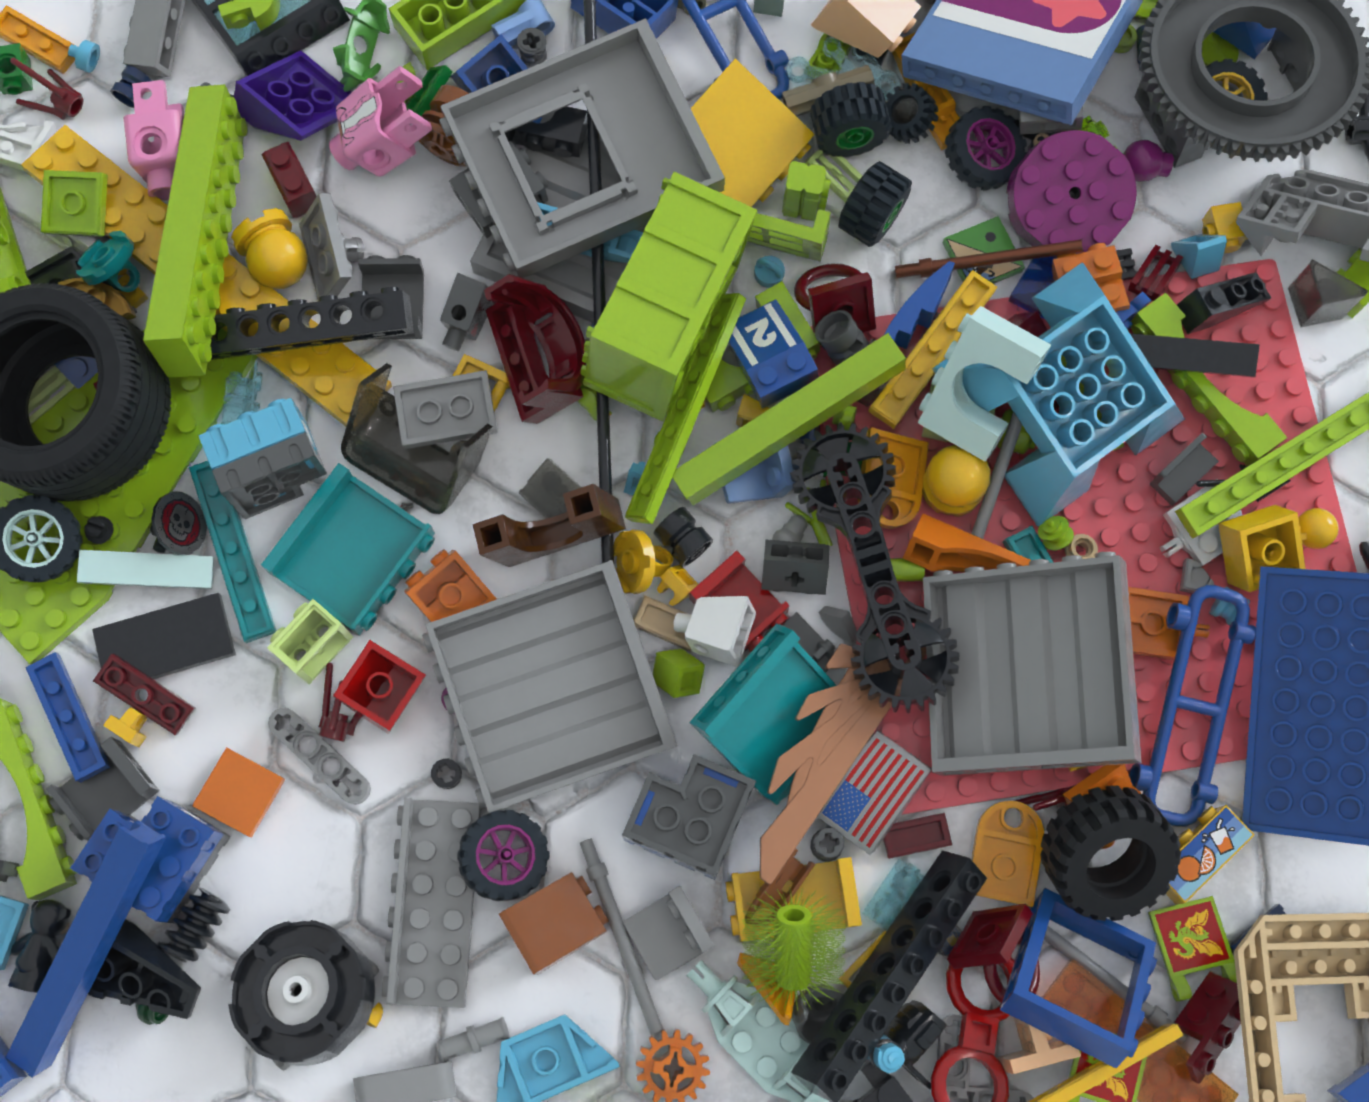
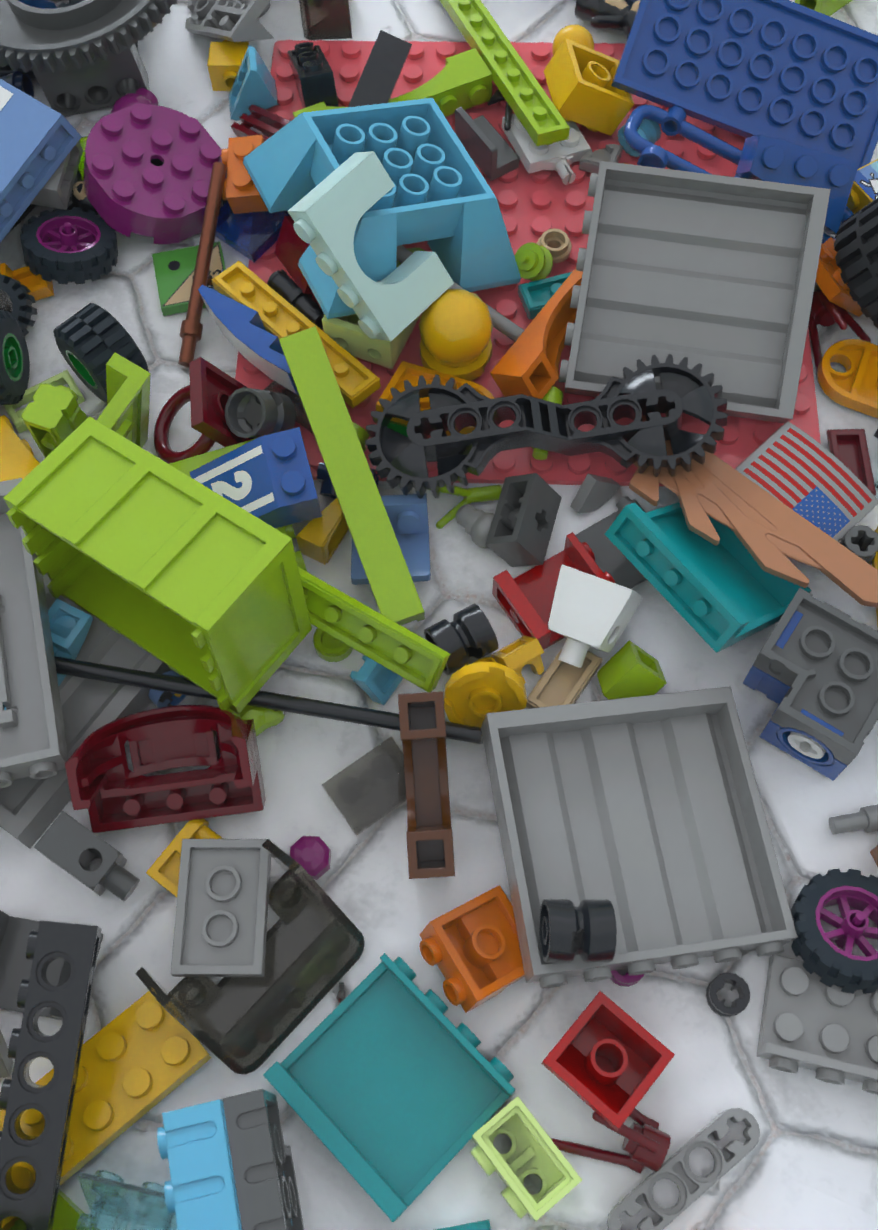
camera: 75 degrees left, 10 degrees down
(456, 645) = (577, 930): none -> black wheel
(497, 463) = (312, 855): none -> magenta tile
(1196, 754) = (794, 164): none -> blue wedge

